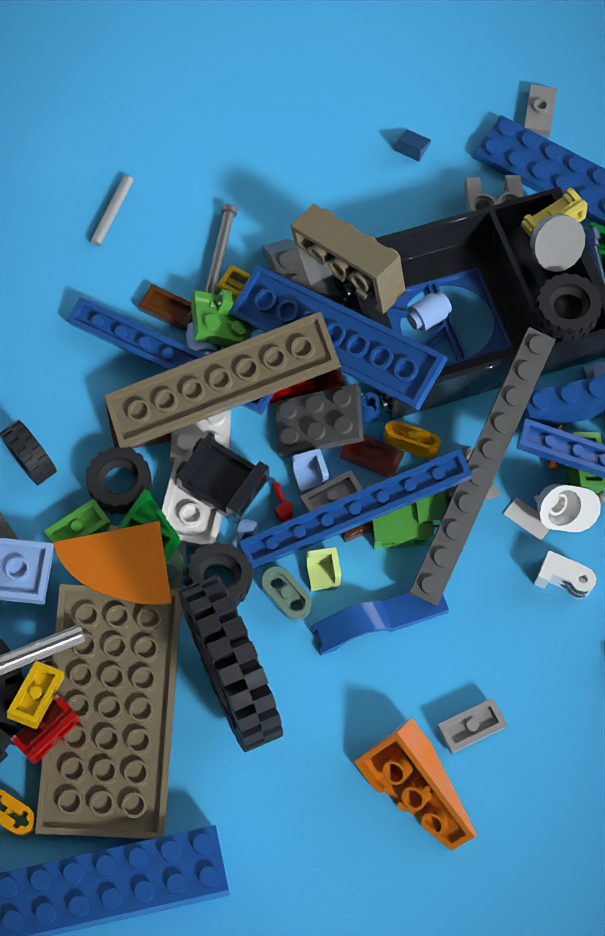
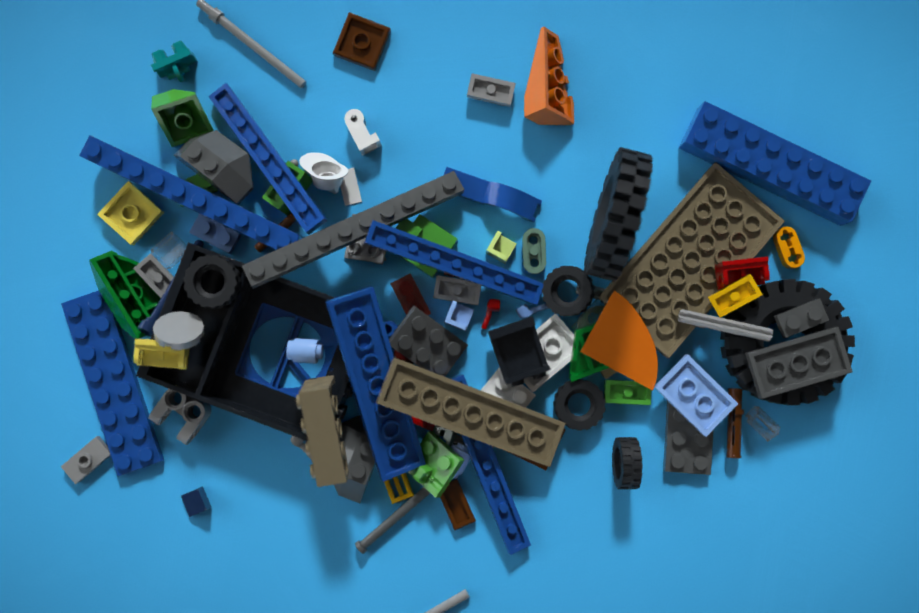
camera: 140 degrees left, 20 degrees up
(411, 439) = (381, 287): light orange plate -> none

